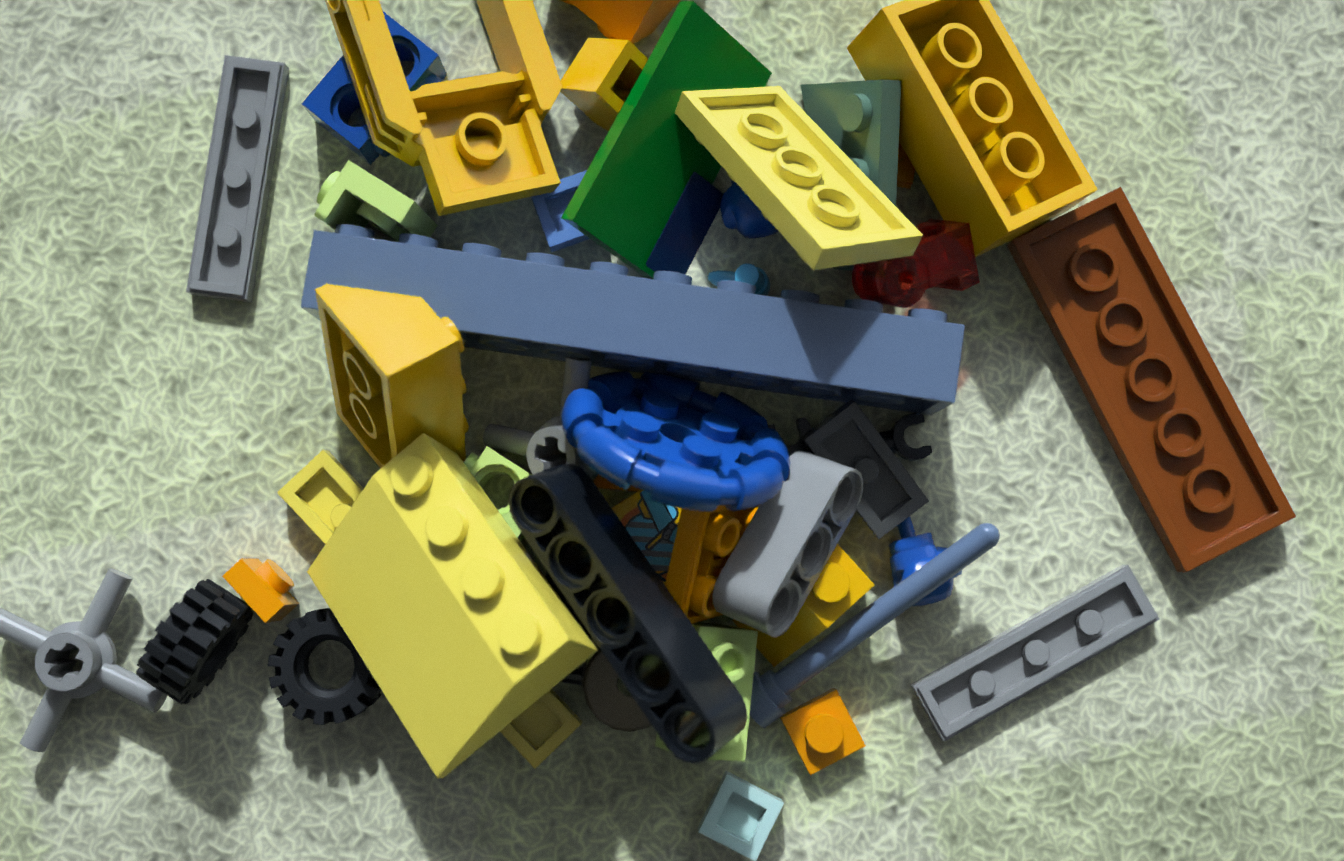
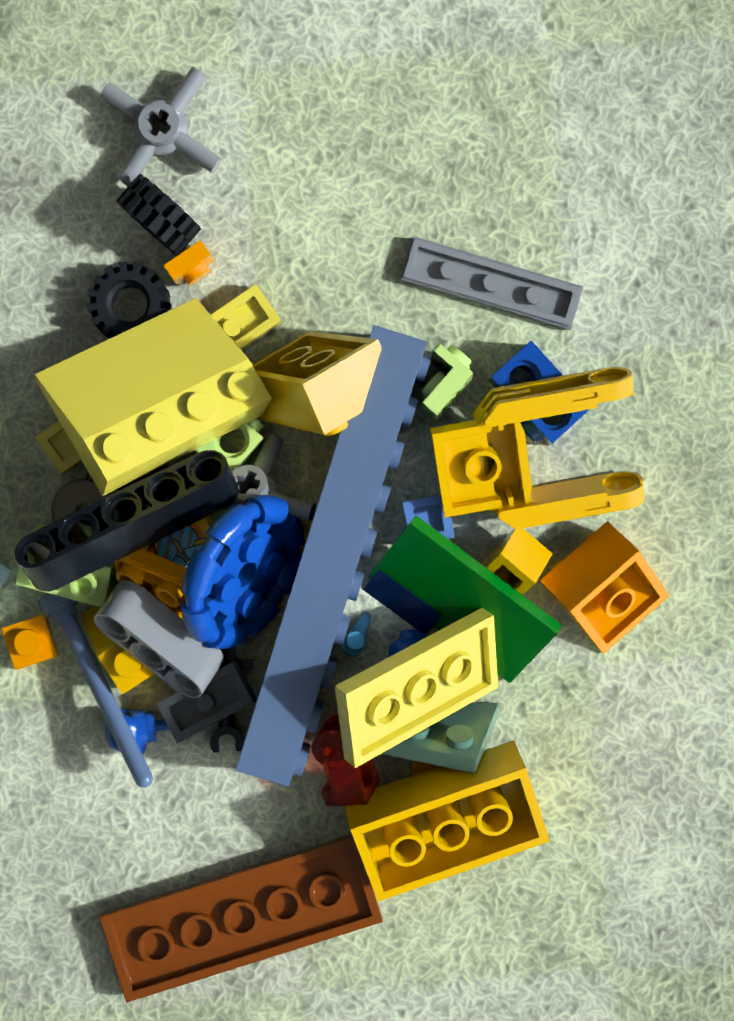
camera: 110 degrees right, 5 degrees up
(1034, 652) = (62, 801): light grey tile -> none

